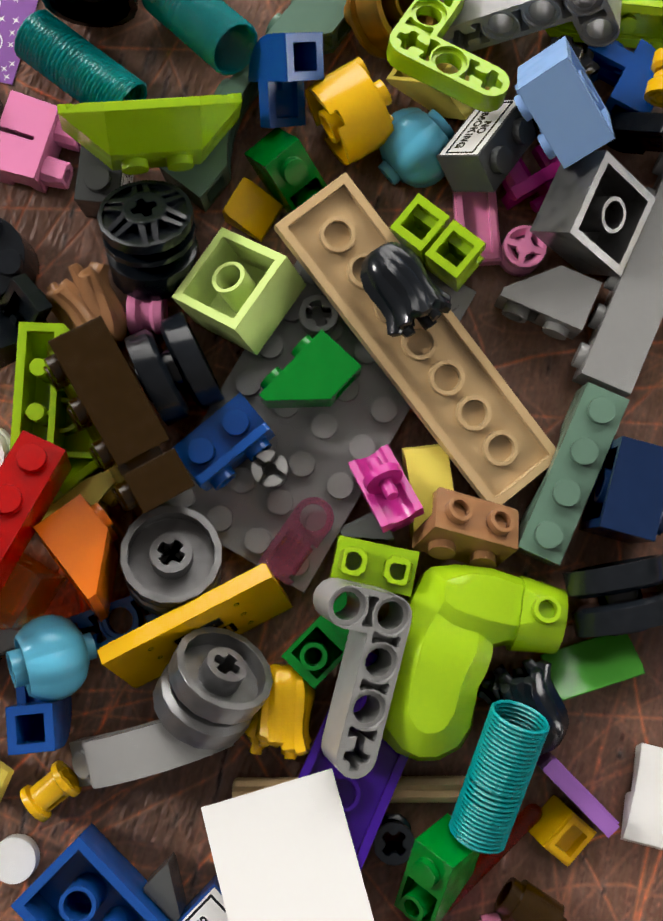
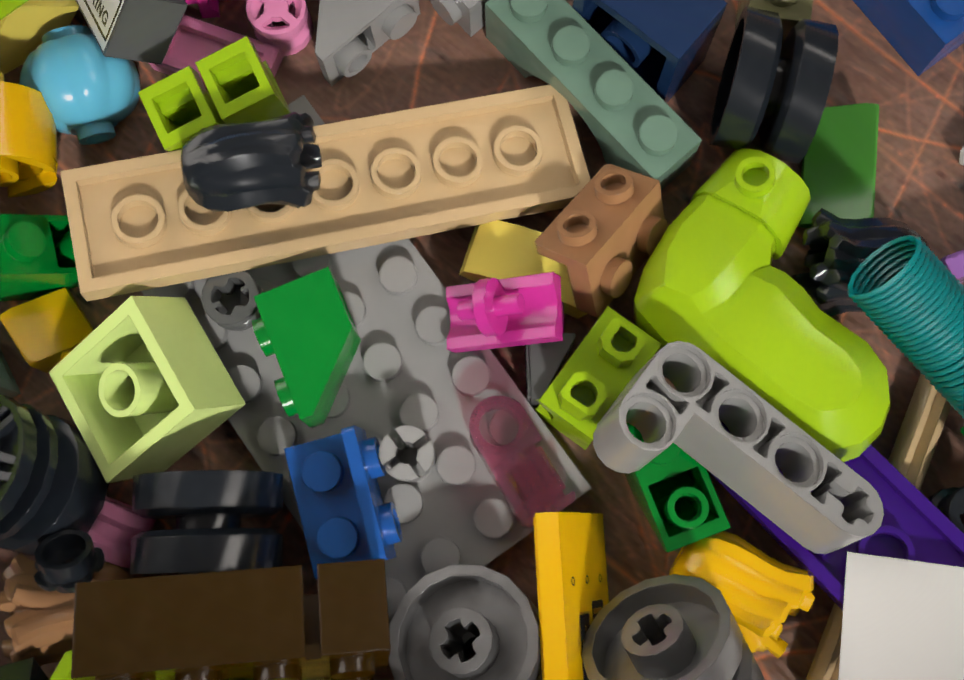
camera: 65 degrees left, 5 degrees down
(115, 298) = (66, 560): none -> black plate

